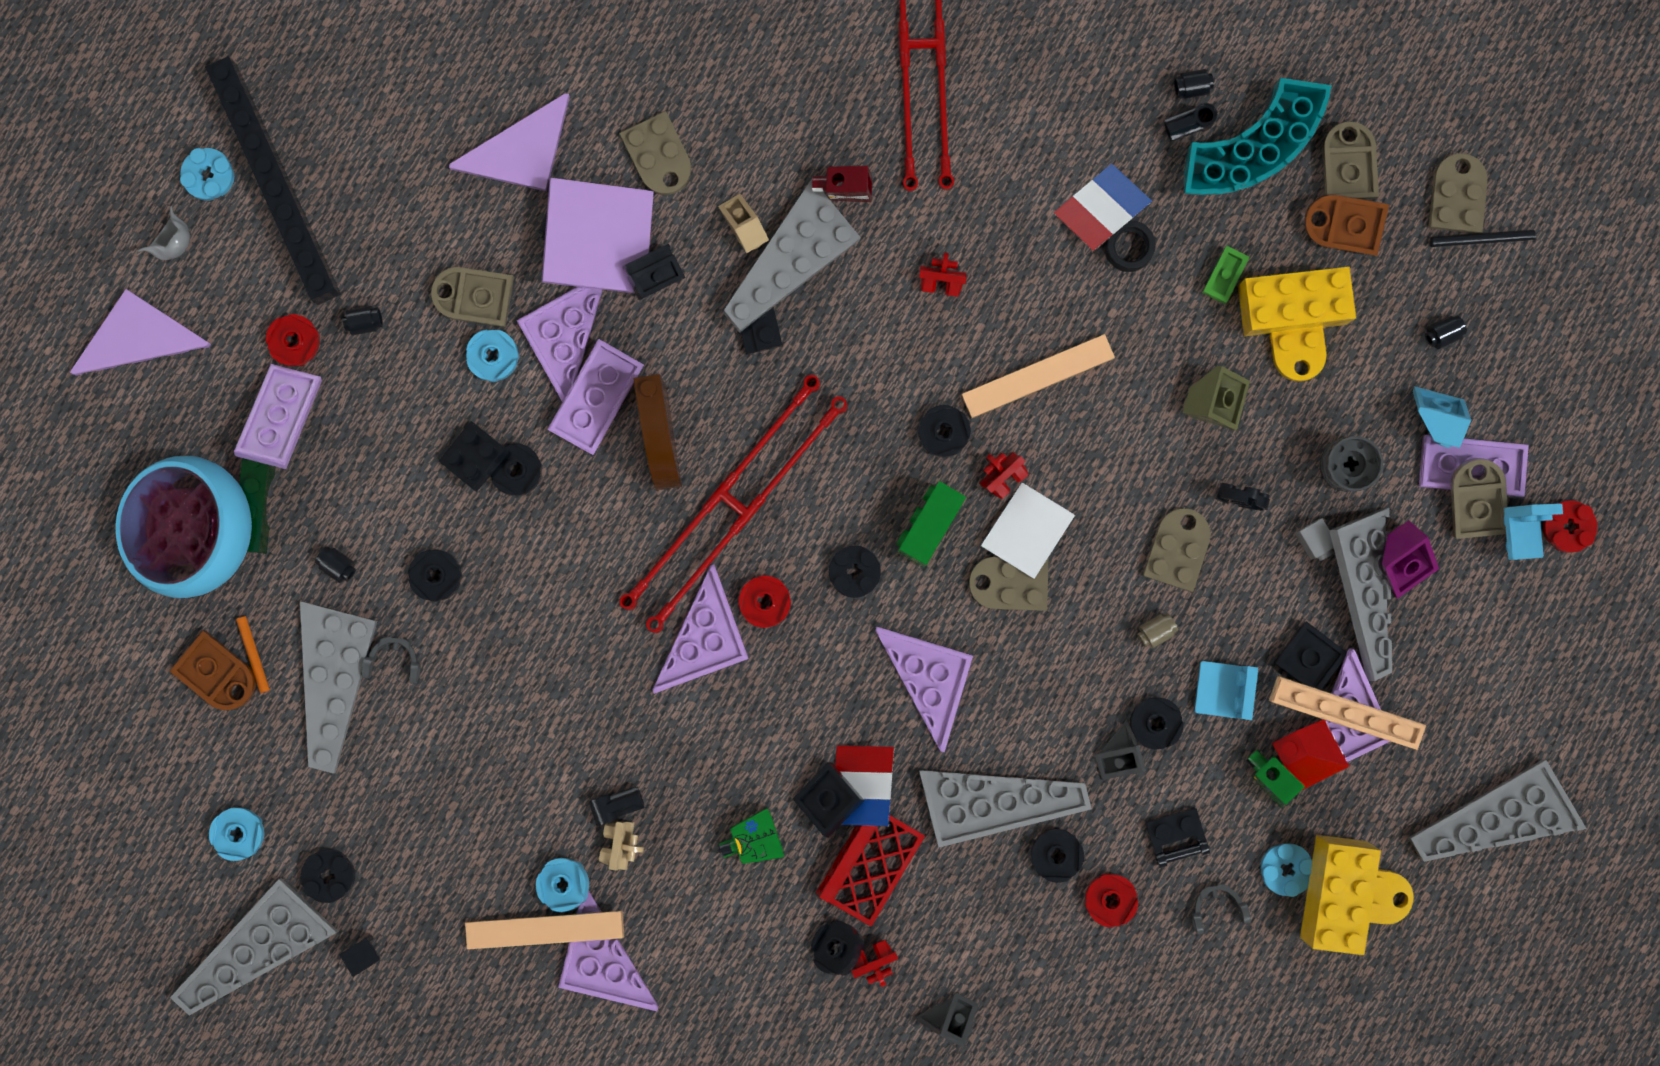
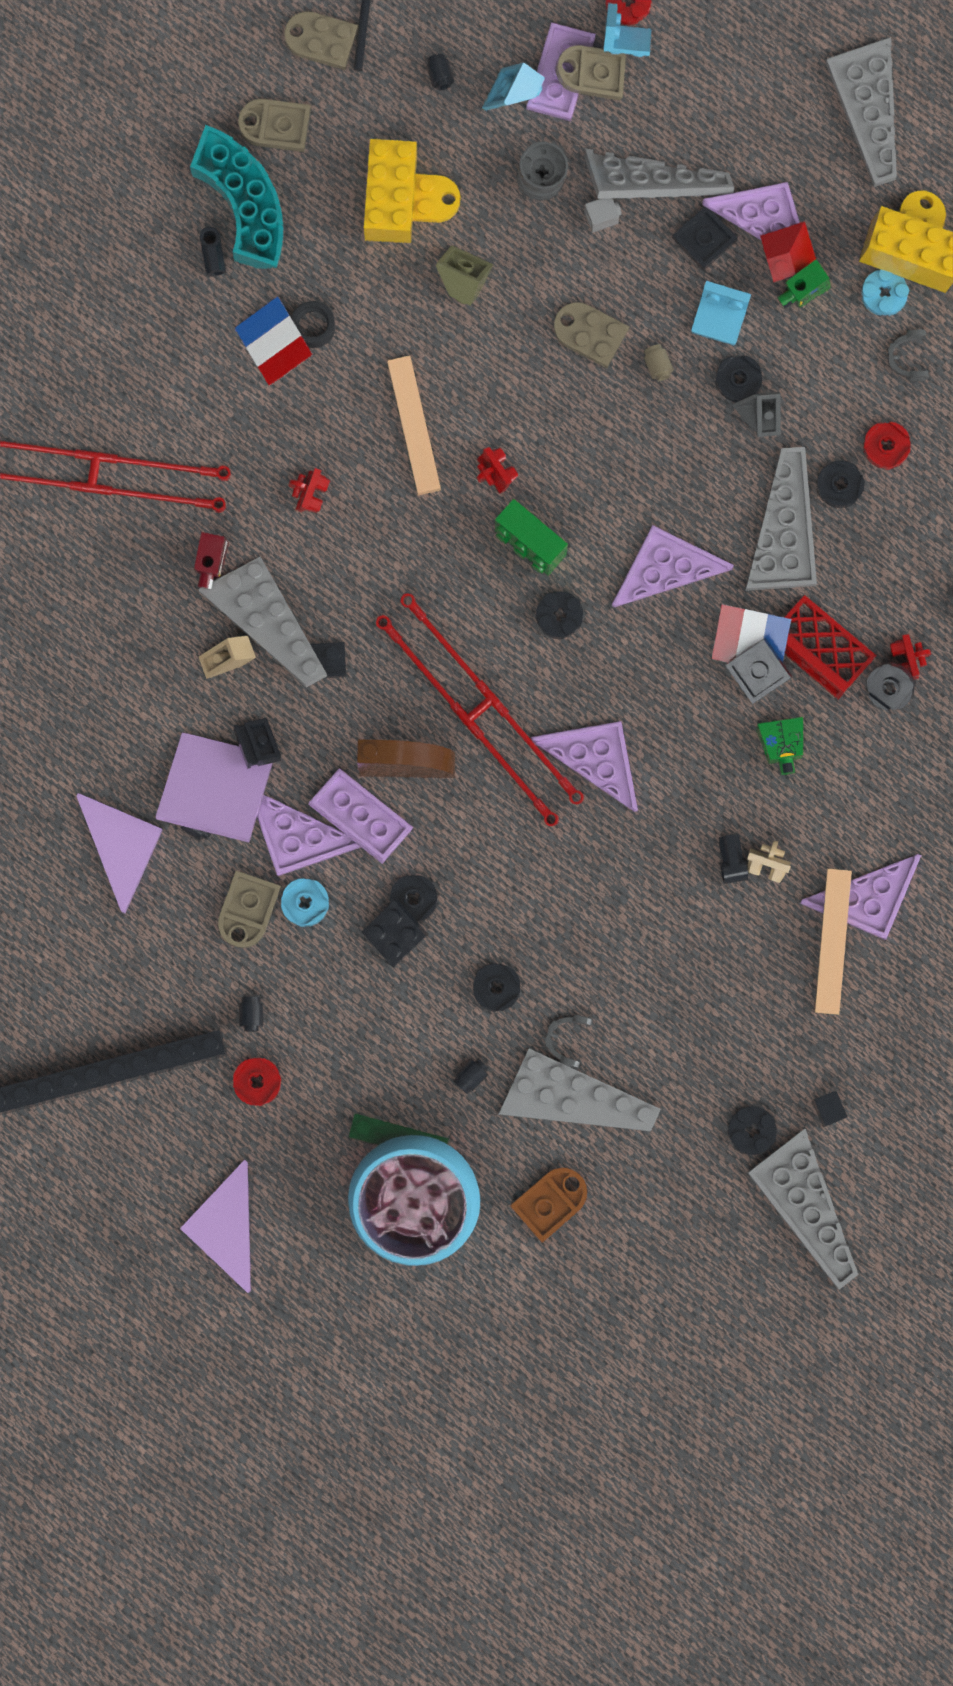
camera: 80 degrees left, 5 degrees down
(171, 241) = (131, 1174): light grey hair -> none
(201, 160) = (99, 1132): medium azure plate -> none
(224, 842) = (705, 1219): medium azure plate -> none
(253, 655) = (539, 1166): orange bar -> none
(278, 416) = (326, 1102): lavender tile -> none
(577, 888) = (805, 927): medium azure plate -> none
(657, 153) = (147, 723): dark tan plate -> none
(758, 588) = (568, 685): red plate -> none
(953, 419) = (457, 504): black plate -> none
(1010, 586) = (594, 479): dark tan plate -> none
(1028, 530) = (550, 457): white sticker -> none
(1173, 829) = (833, 379): black plate -> none
(1193, 84) = (178, 243): black brick -> none
(1225, 274) = (354, 247): bright green plate -> none
(1248, 498) = (557, 261): black plate -> none
(1347, 712) = (757, 215): light nougat tile -> none
(1348, 223) = (329, 134): dark orange plate -> none
(1408, 558) = (632, 139): magenta slope -> none

